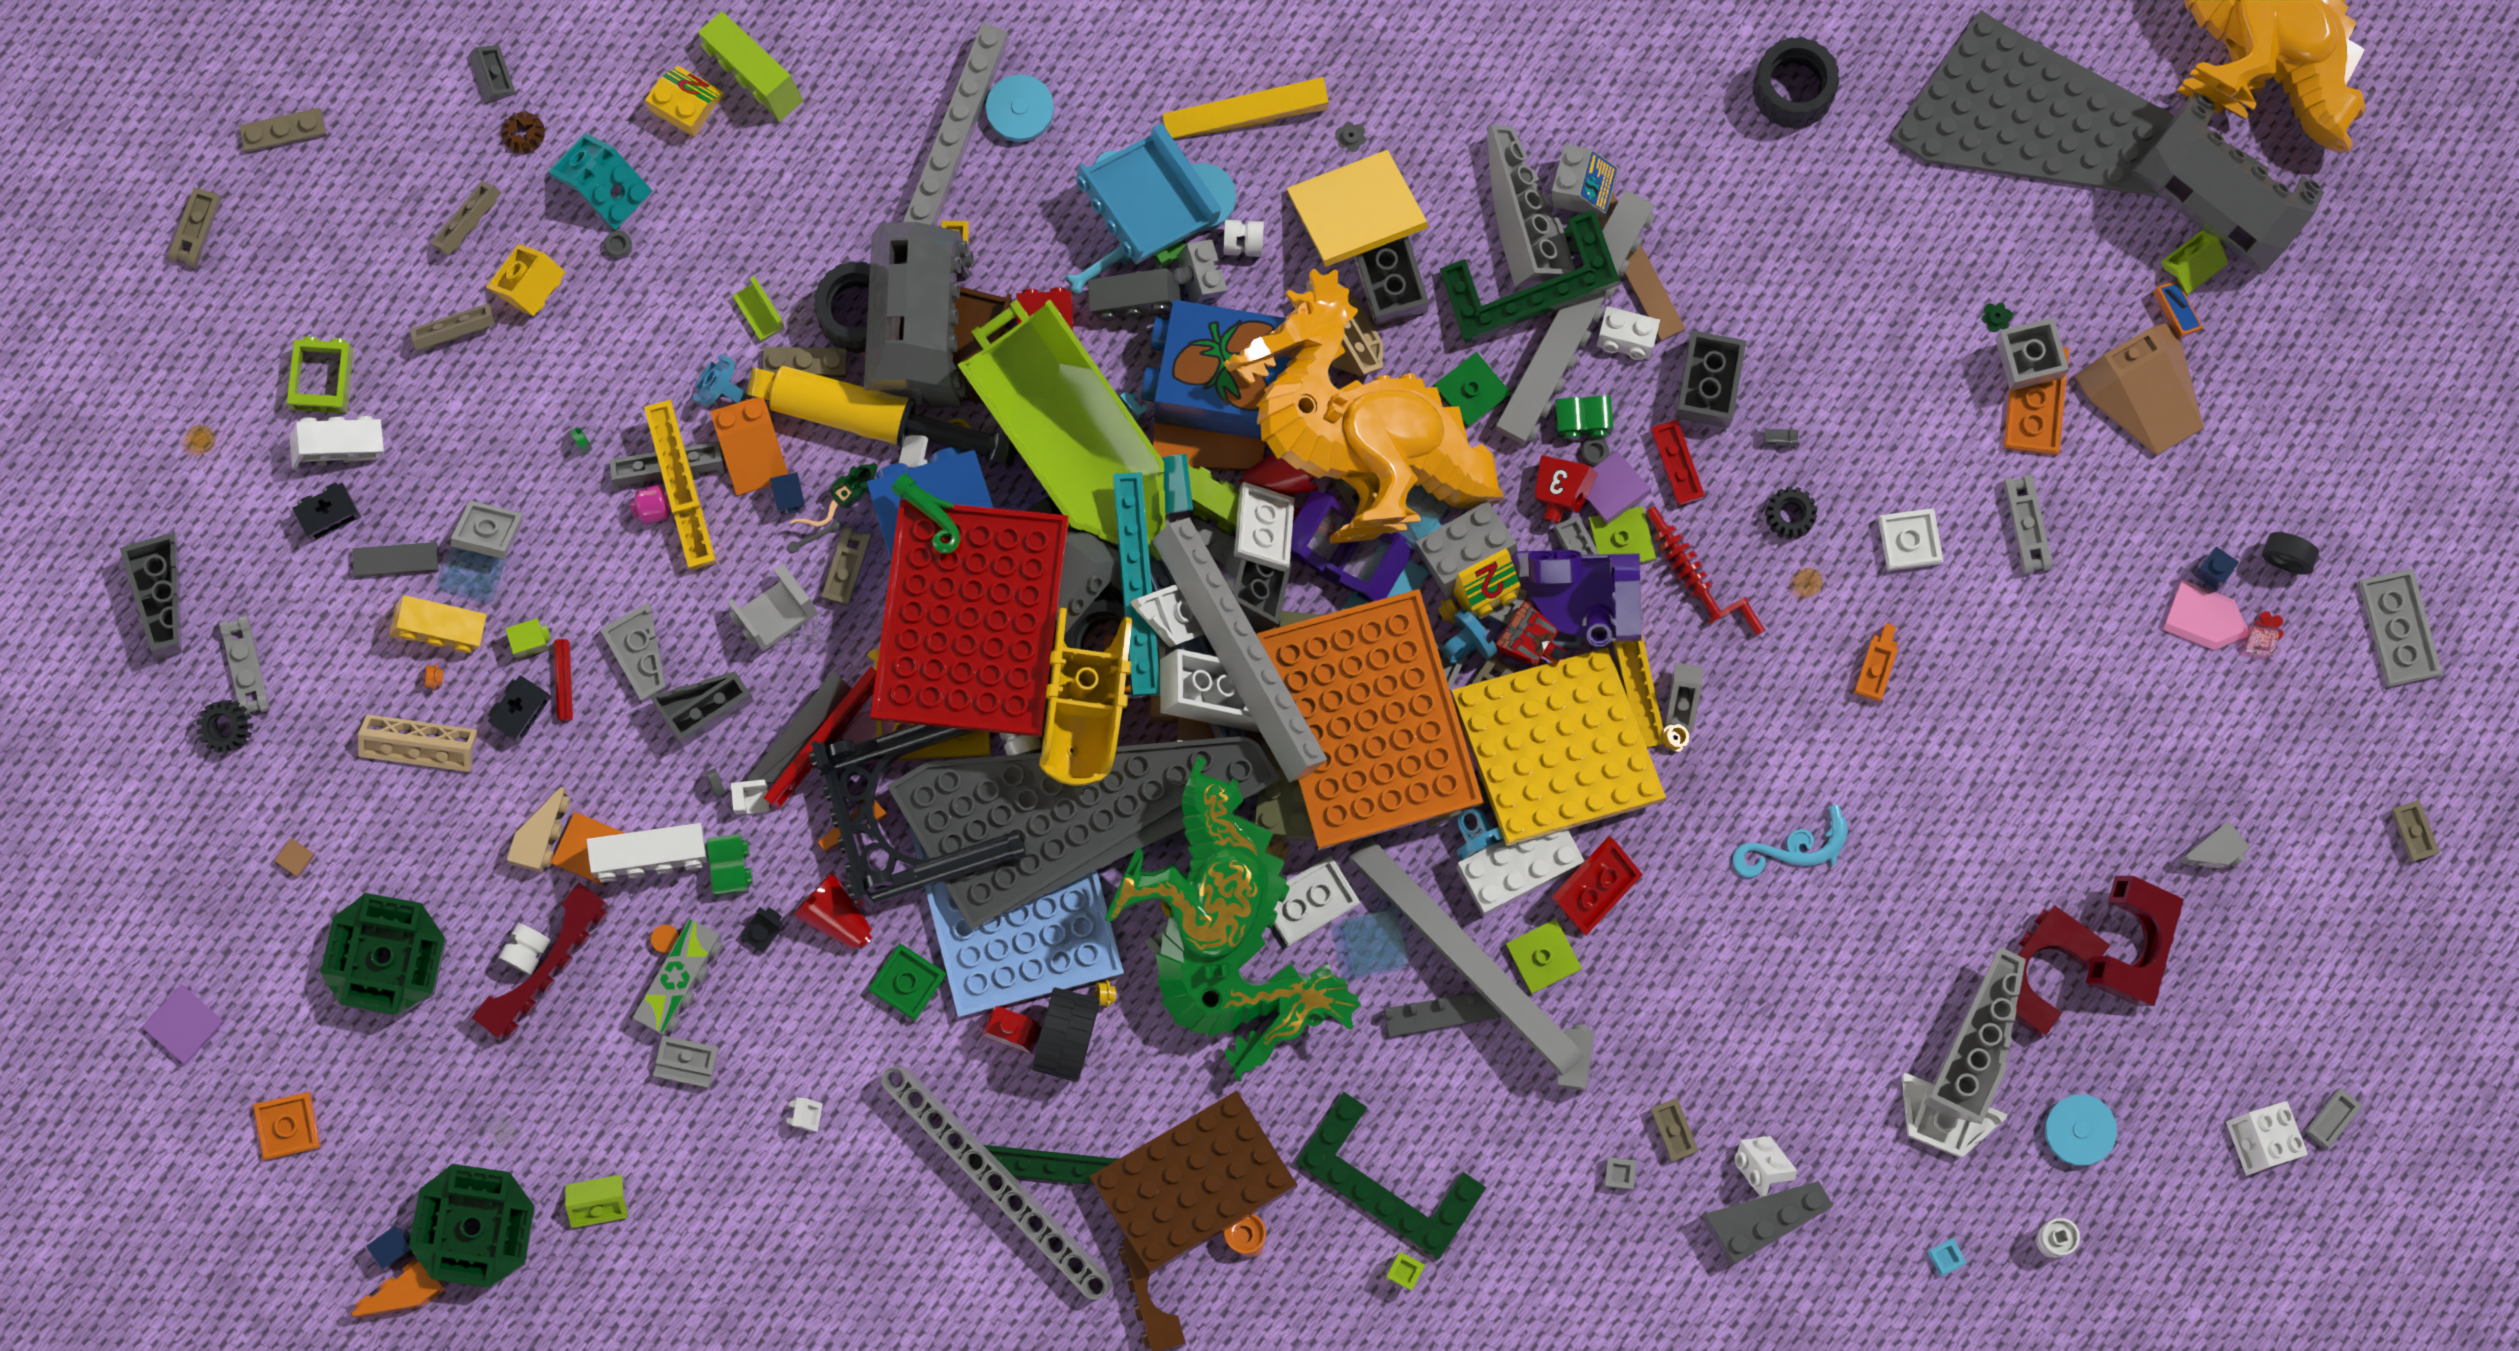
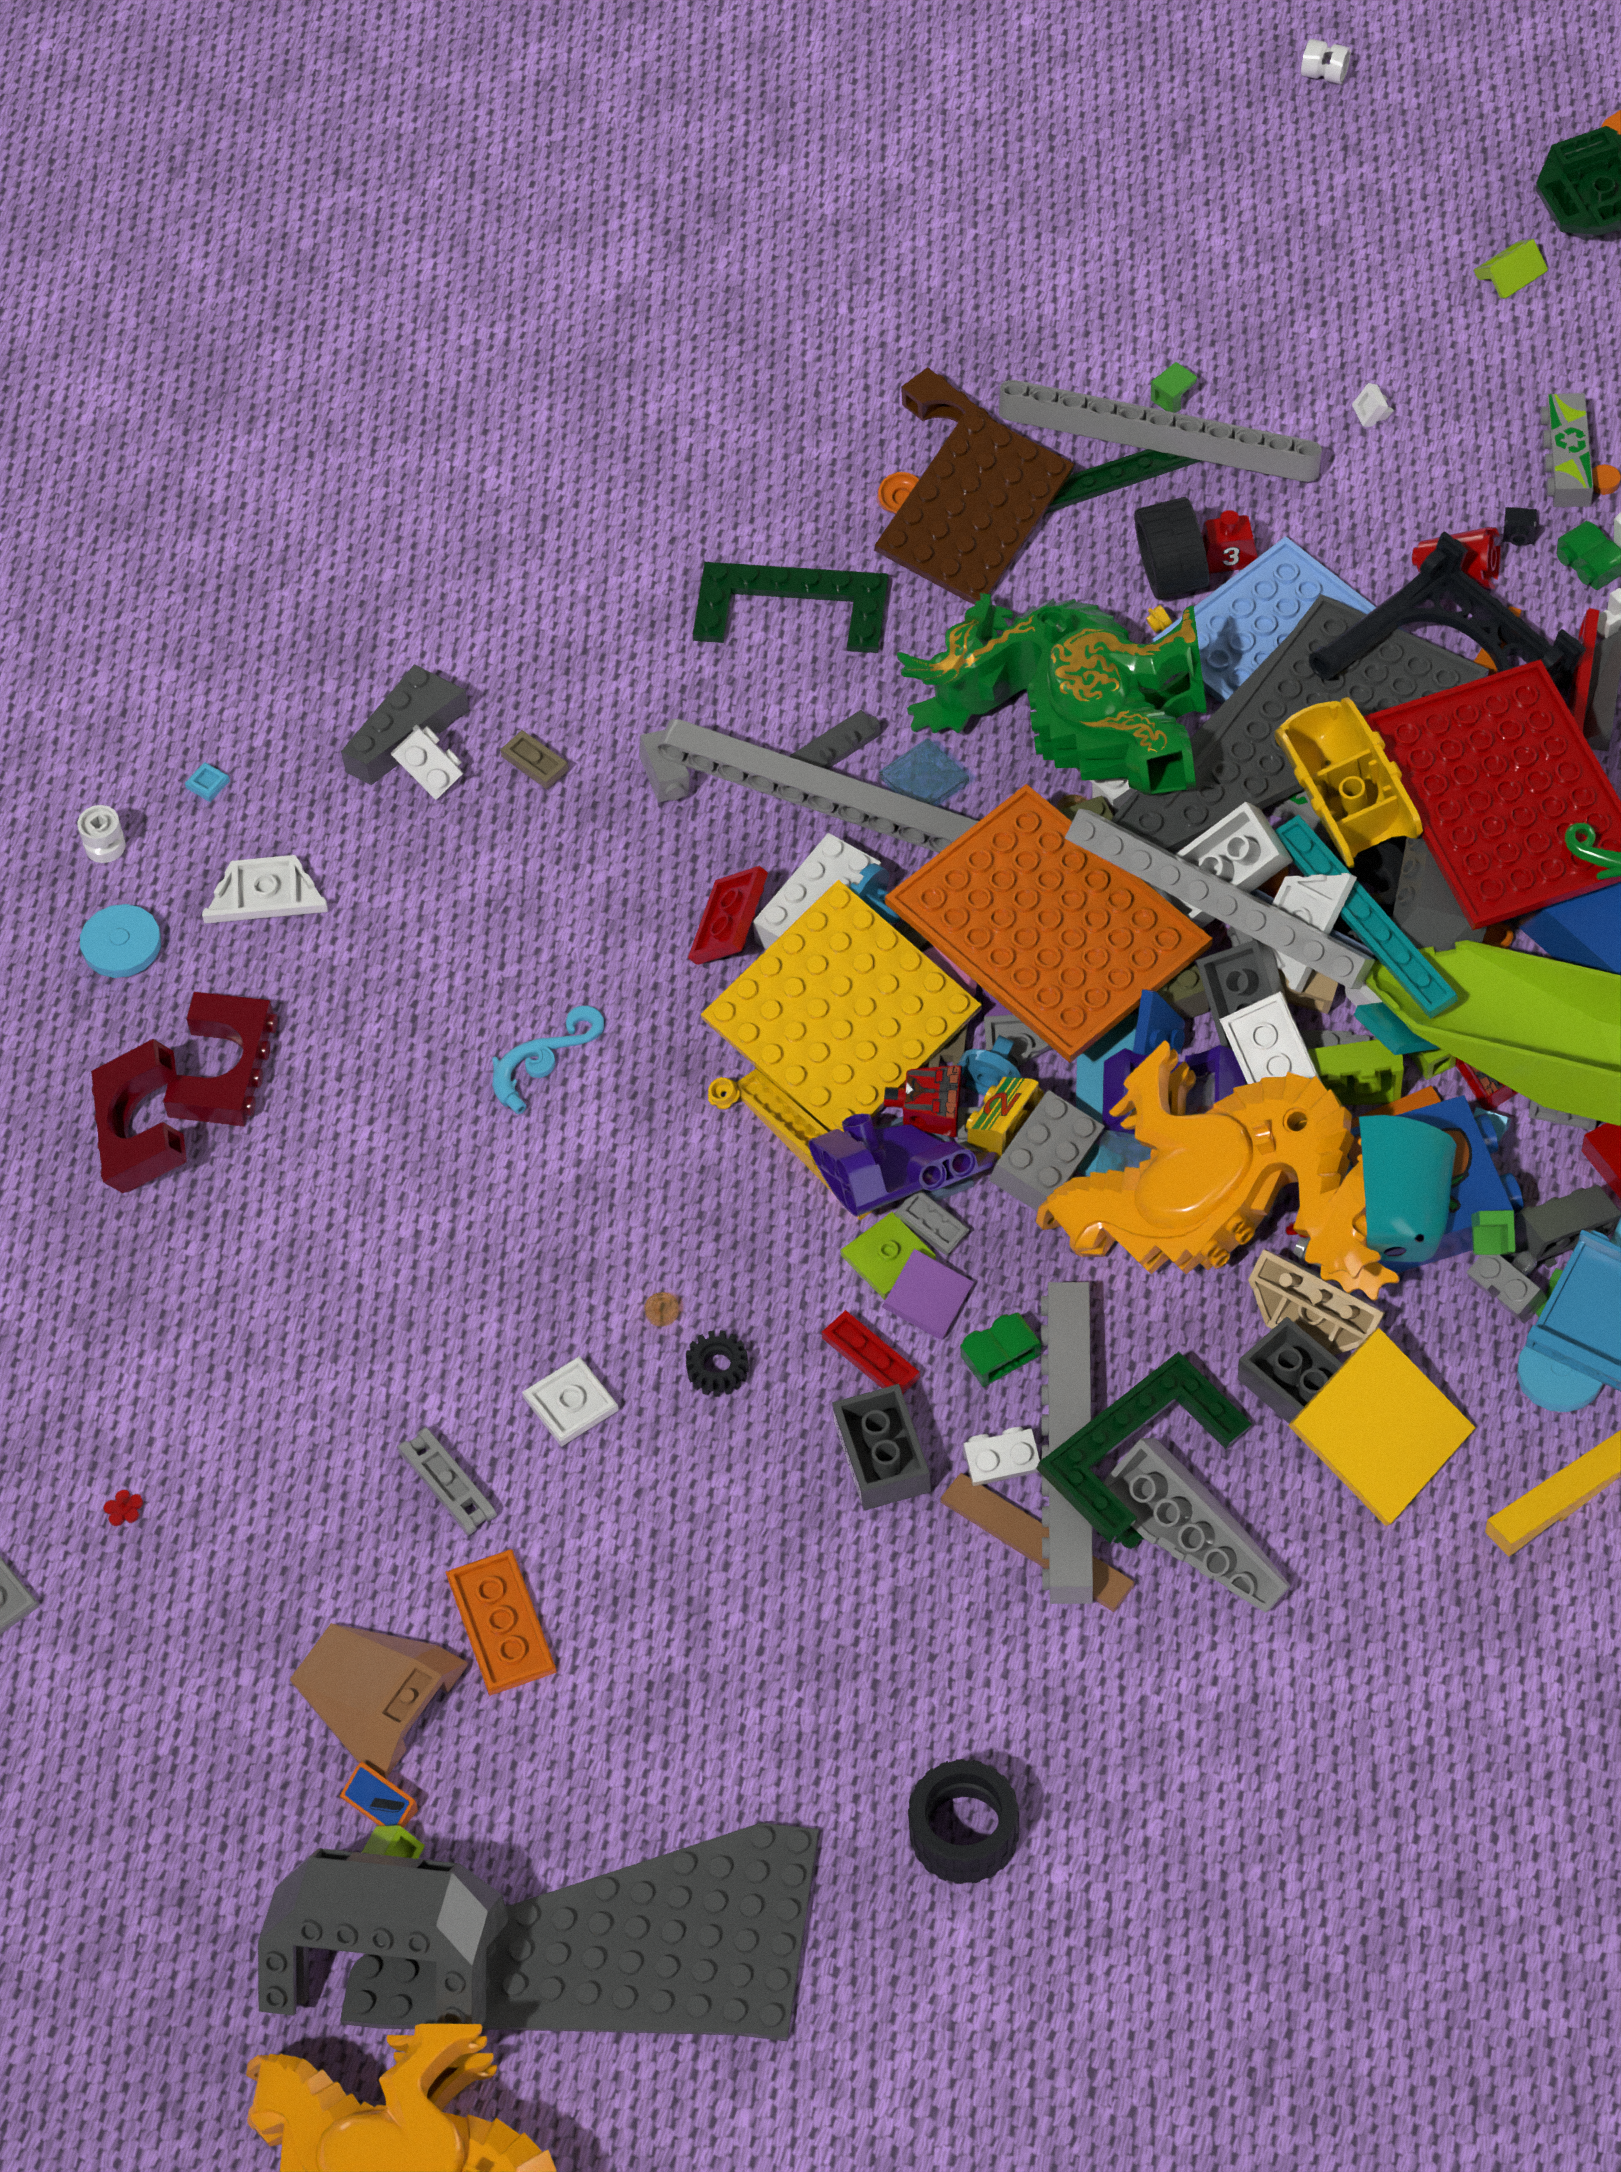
camera: 160 degrees right, 20 degrees down
(686, 1062) = (1510, 396): light grey plate -> none
(907, 982) = (1353, 545): green plate -> none
(956, 1223) = (1170, 385): none -> bright green panel
(1197, 291) = (1493, 1232): none -> bright green panel
(1253, 238) = (1482, 1346): white wheel -> none
(1254, 324) = (1405, 1185): none -> teal piece
(1313, 901) = (1007, 773): white tile -> none
(1332, 598) = (1157, 1023): none -> blue wing
(1352, 143) = (1437, 1531): dark grey plant -> none
(1405, 1271) = (730, 532): lime panel -> none
(1473, 389) = (1139, 1324): green plate -> none
(1543, 956) = (747, 842): lime plate -> none
(1562, 486) = (983, 1263): red torso -> none
(1583, 181) = (1146, 1587): light grey slope -> none
(1594, 451) = (965, 1323): dark grey tile -> none
(1620, 1173) = (568, 702): light grey plate -> none
(1684, 695) = (736, 1134): light grey slope -> none
(1695, 580) = (796, 1253): red piece -> none
(1781, 437) = (770, 1436): dark grey pin -> none
(1877, 665) = (543, 1260): orange hinge -> none
(1981, 1045) = (257, 938): light grey wedge -> none
(1995, 324) = (591, 1699): dark green plant -> none
(2032, 354) = (527, 1640): light grey brick -> none
(2205, 617) = (200, 1484): bright pink tile -> none
(2216, 568) = (208, 1528): dark blue brick -> none
(2219, 849) = (86, 1252): light grey slope -> none
(2261, 639) = (125, 1484): clear pink tile -> none
(2290, 553) = (129, 1577): black tyre -> none

